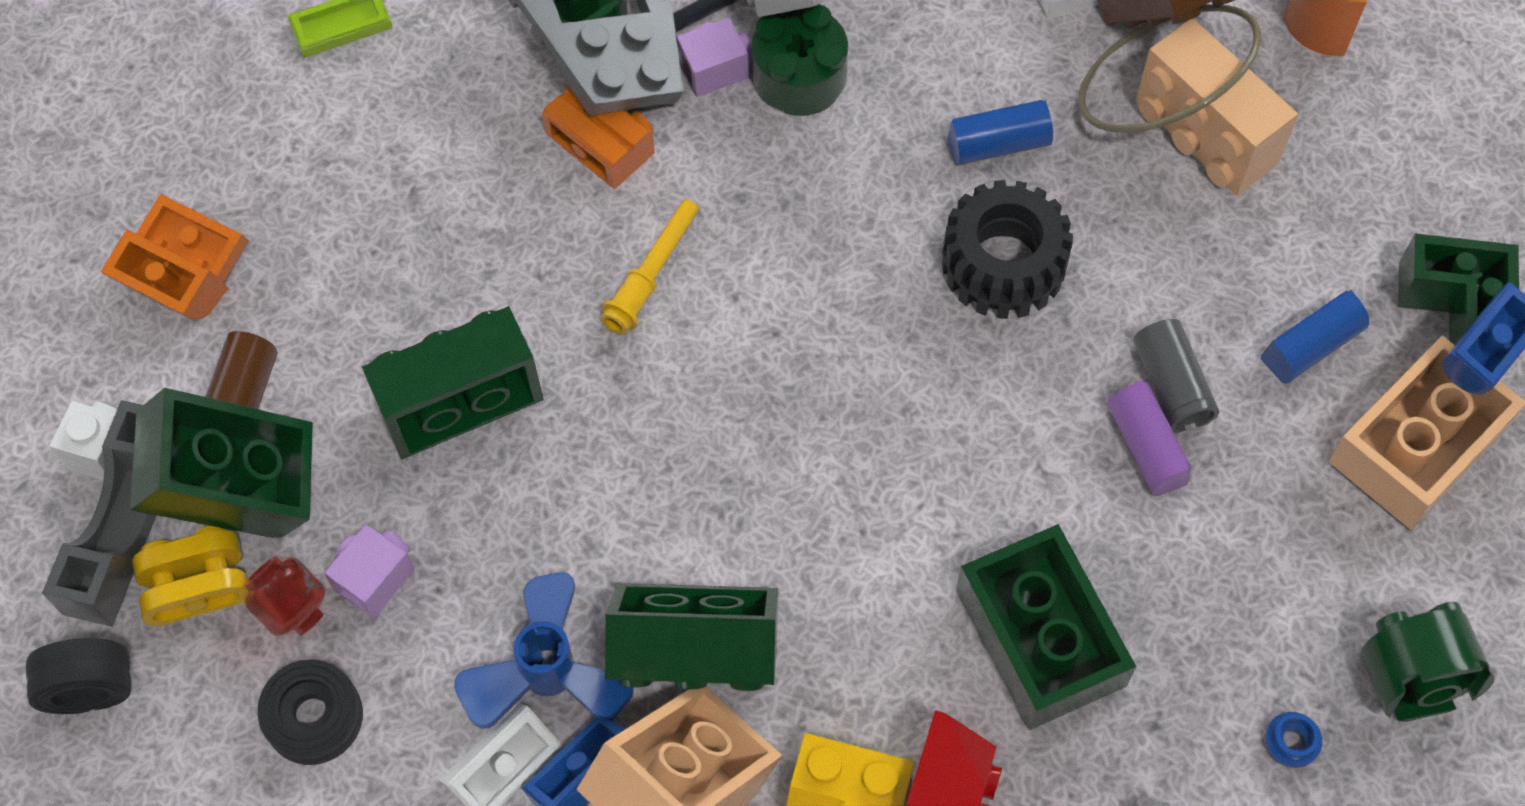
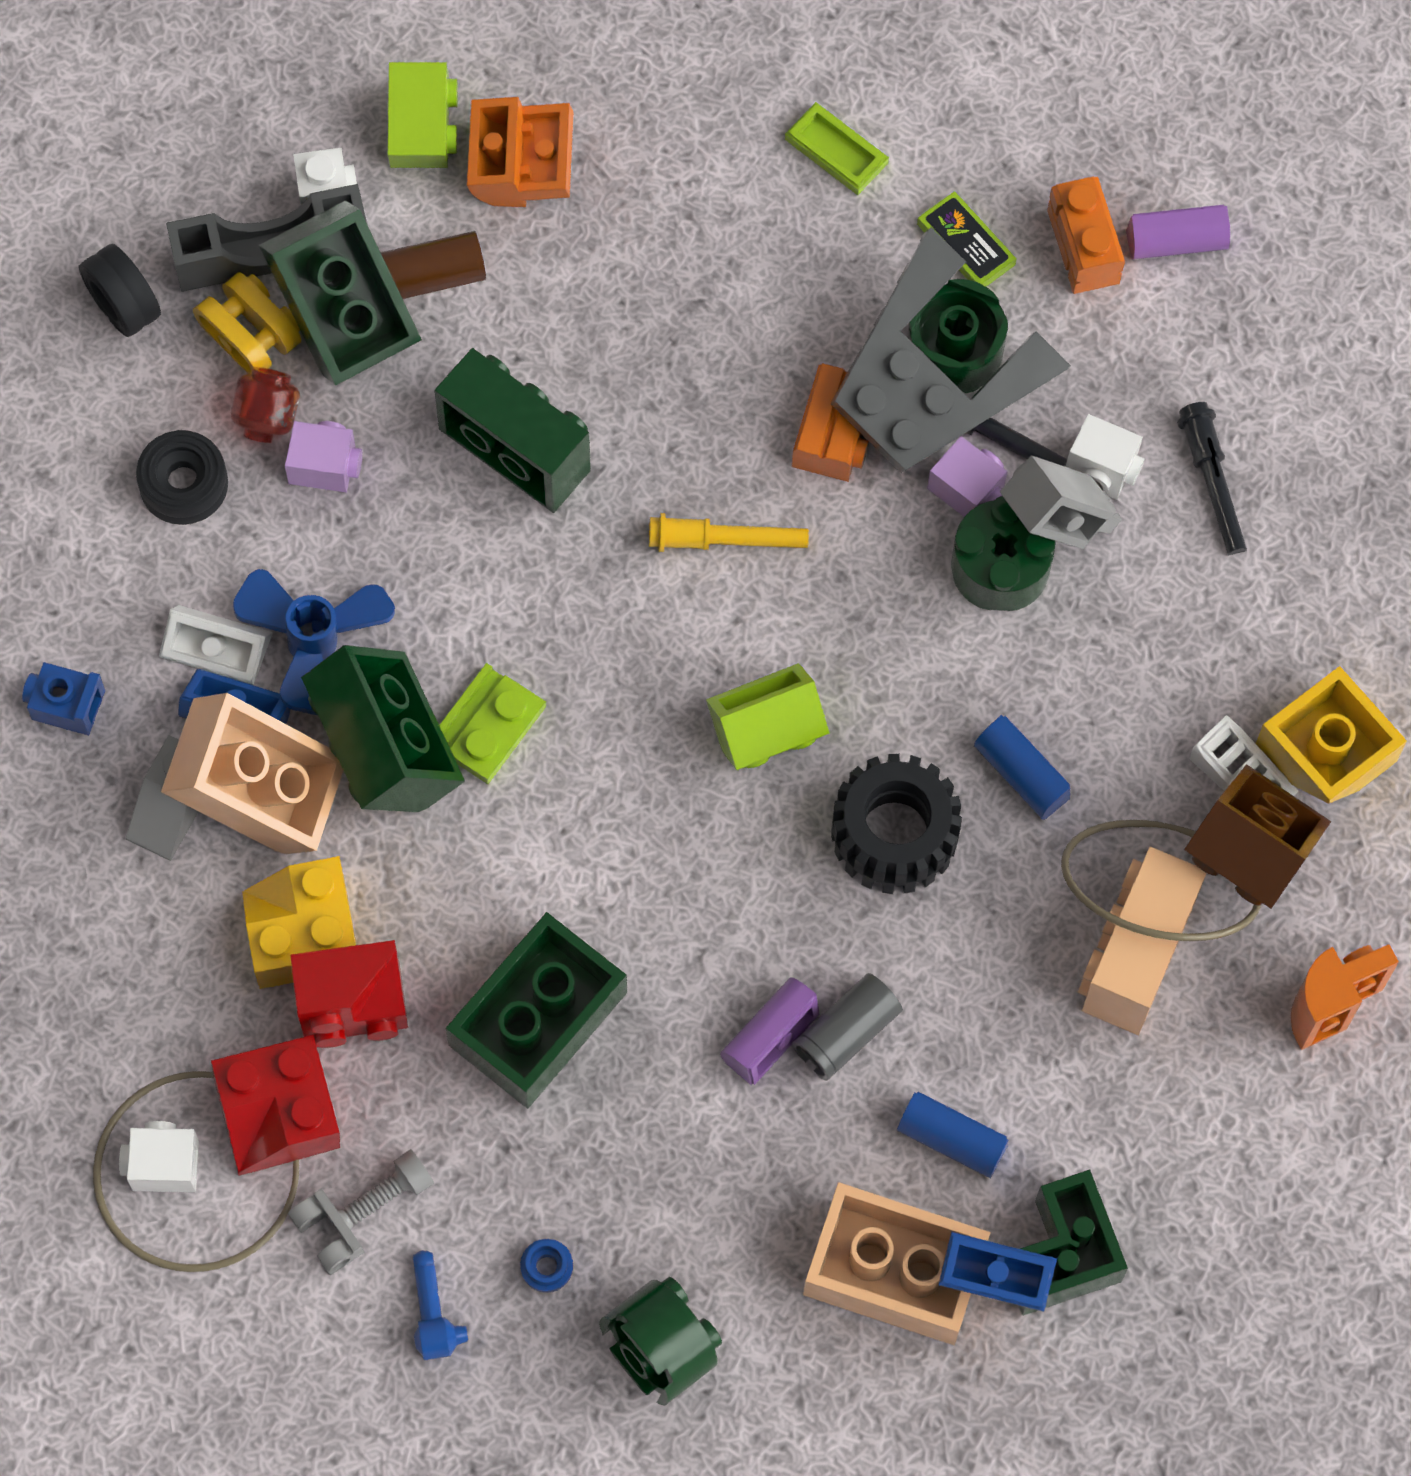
camera: 60 degrees right, 5 degrees up
(81, 325) = (420, 115): none -> lime brick
(722, 543) = (490, 722): none -> lime plate
(852, 303) = (768, 717): none -> lime brick

